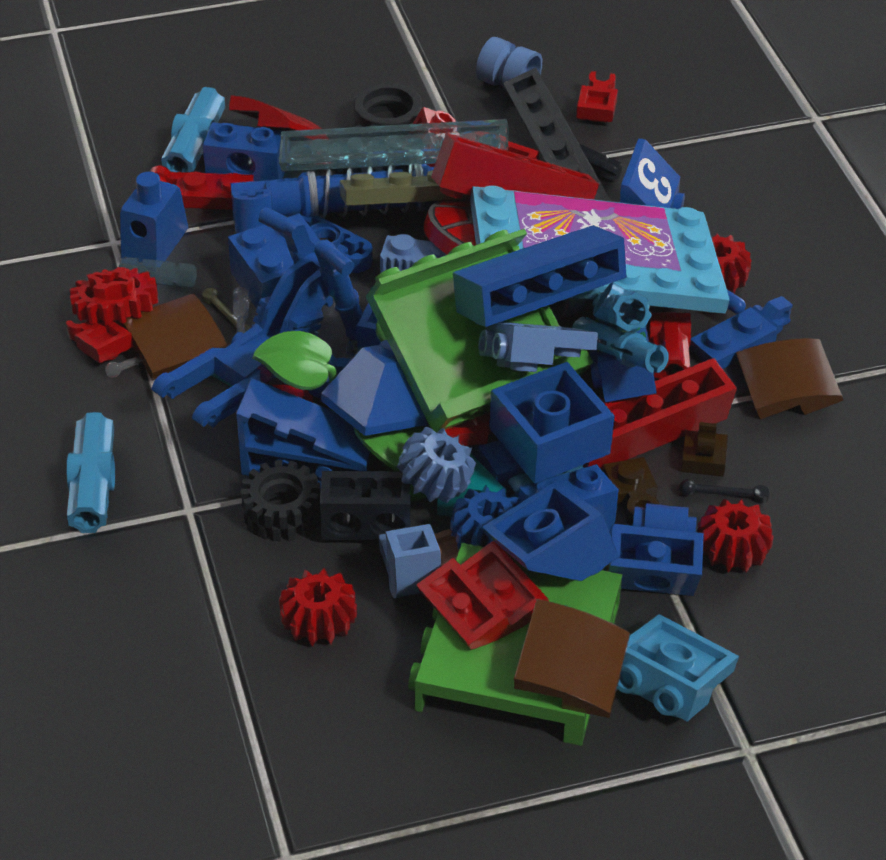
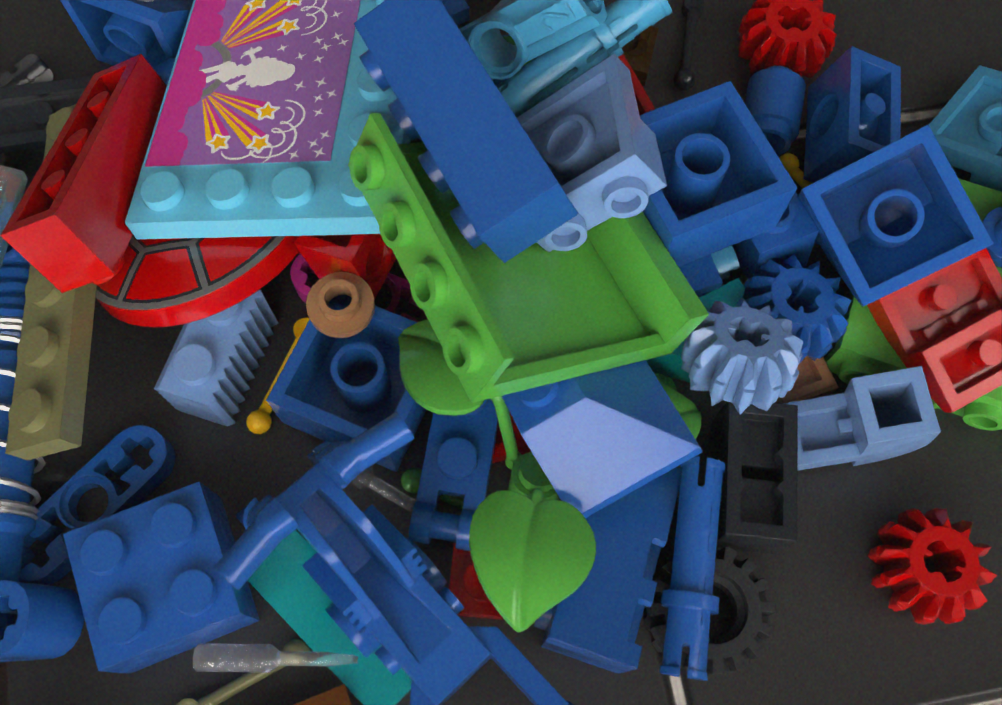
camera: 85 degrees left, 25 degrees up
(293, 463) = (693, 570): none -> blue pin

